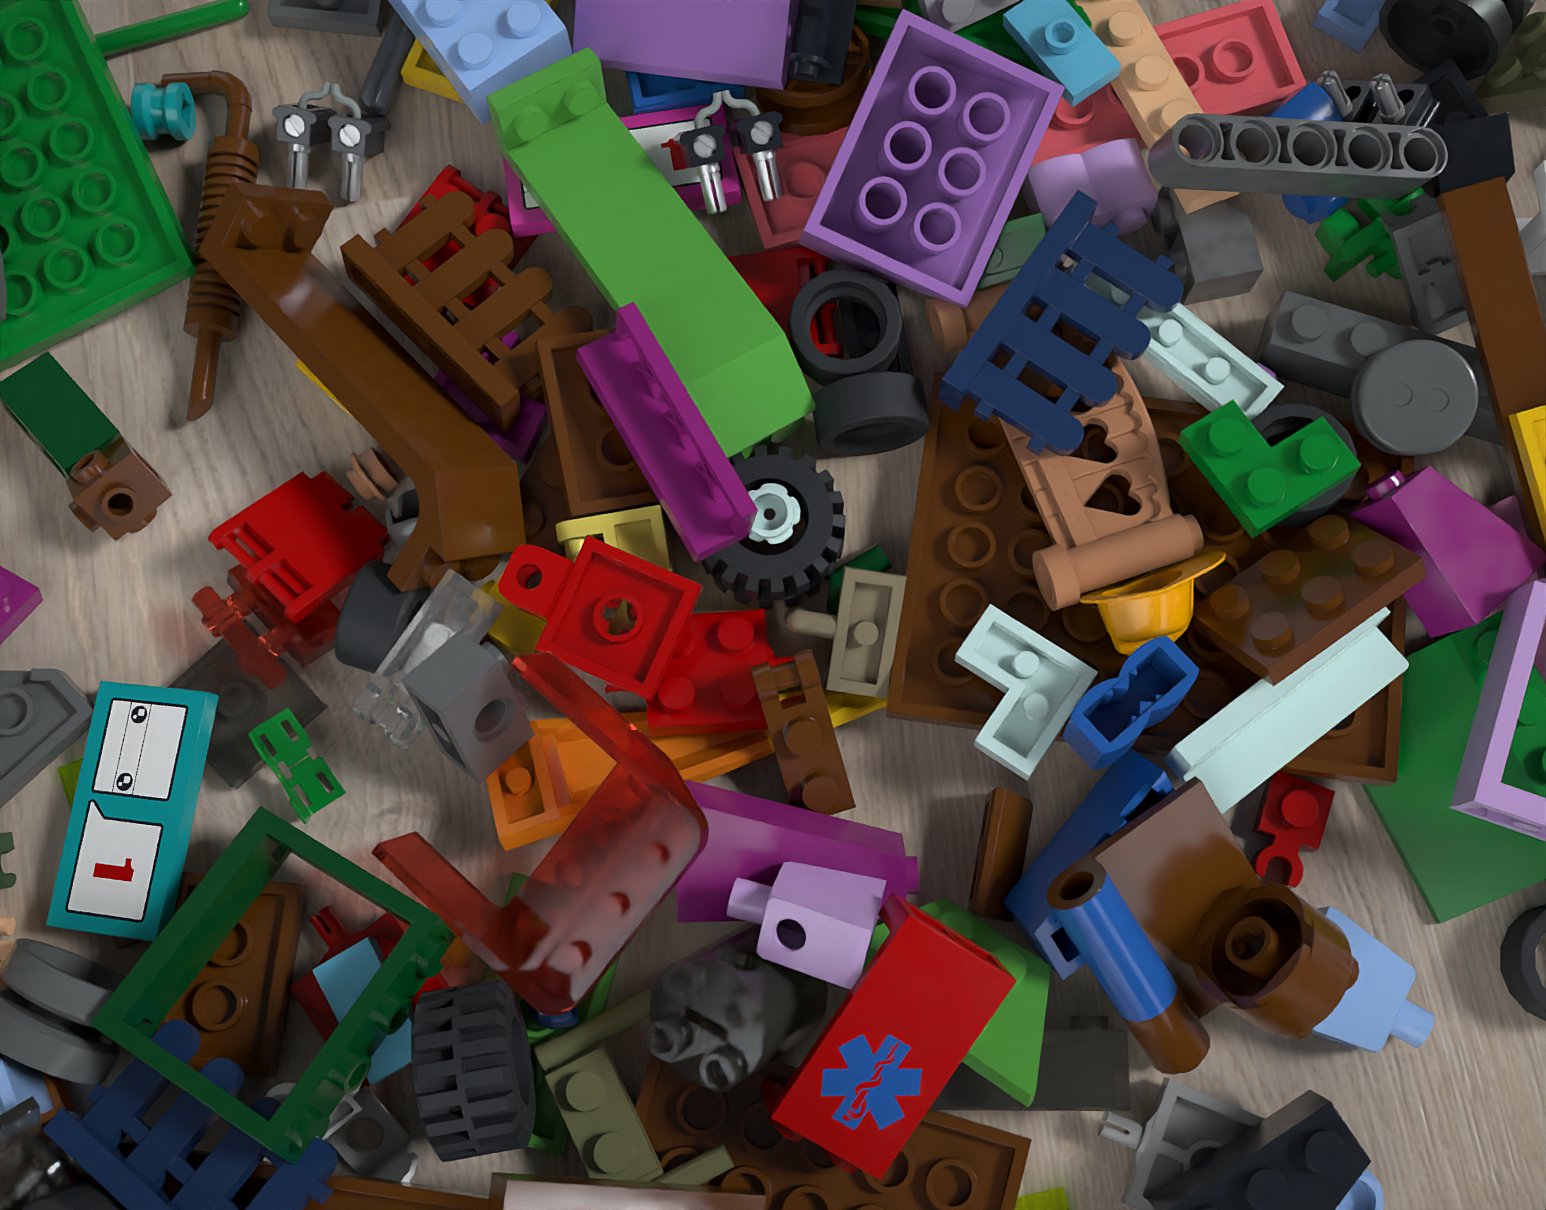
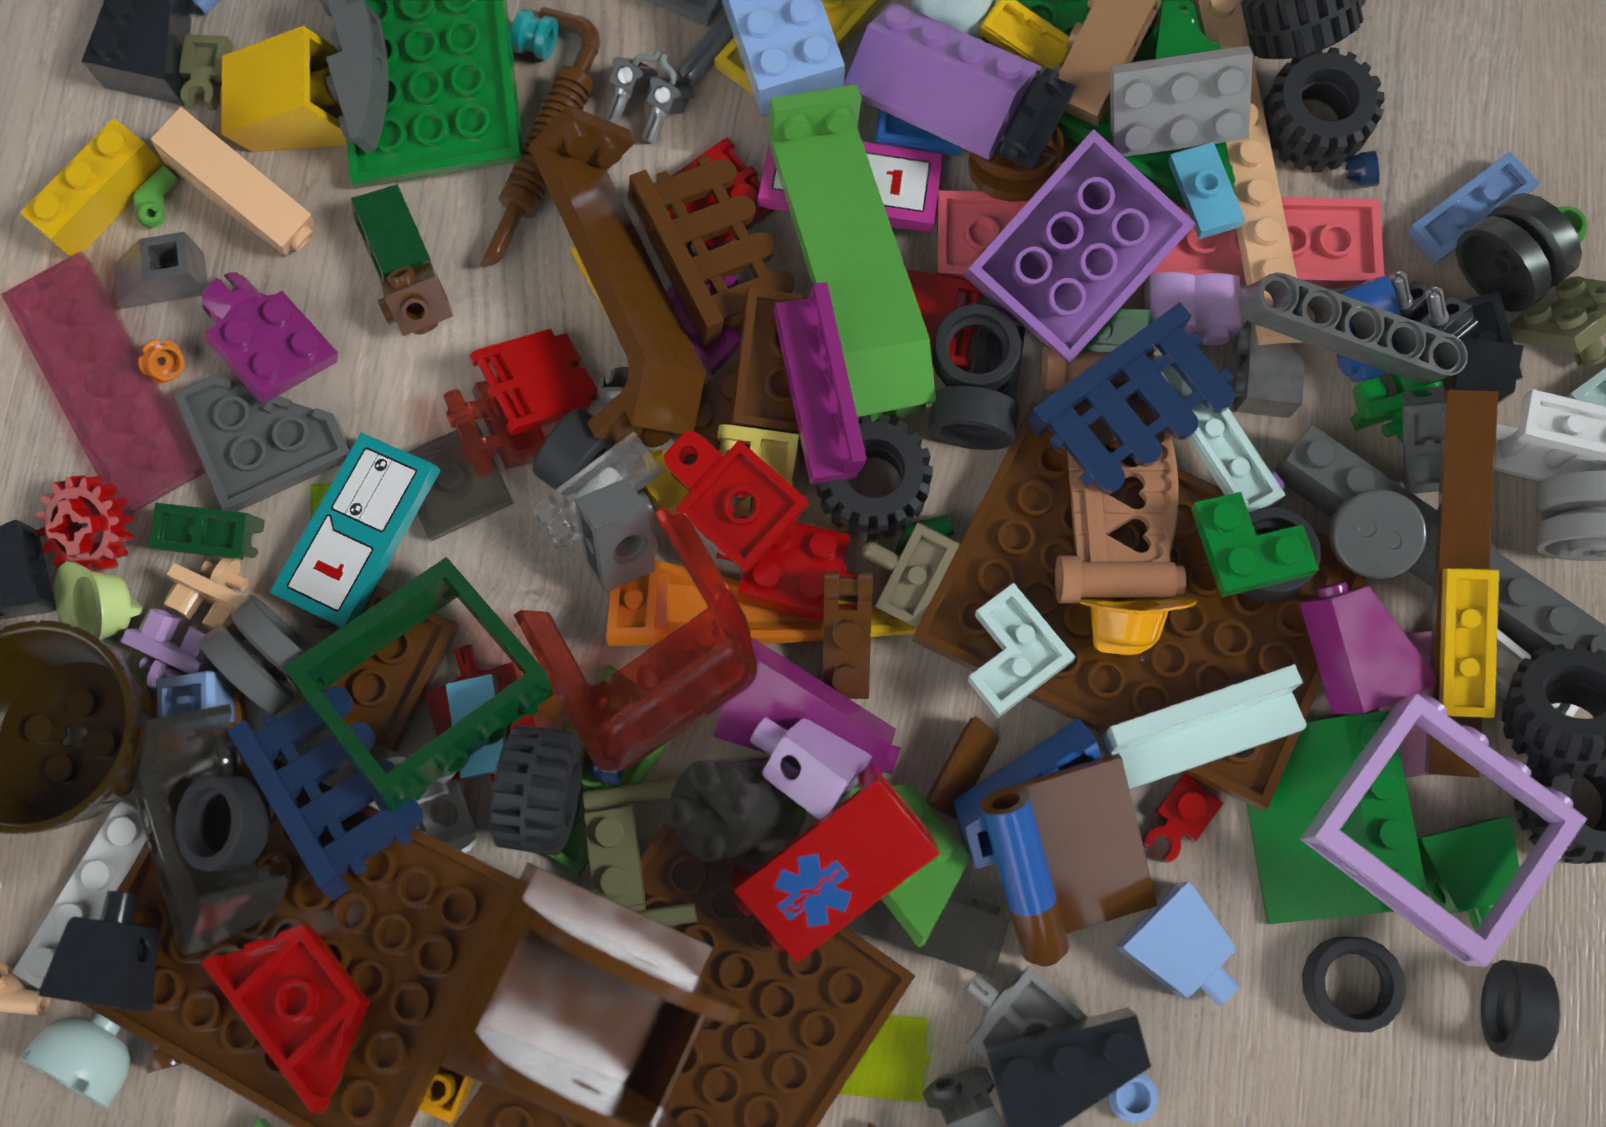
camera: 15 degrees right, 0 degrees up
(303, 772) = (482, 544): green piece -> none
(372, 475) = (599, 347): nougat plate -> none
(755, 135) = (958, 187): piece -> none
(786, 509) = (888, 467): light aqua plate -> none
(1119, 709) = (1101, 683): blue brick -> none
(1274, 959) = (1132, 903): reddish brown brick -> none
(1306, 595) = (1246, 650): reddish brown plate -> none

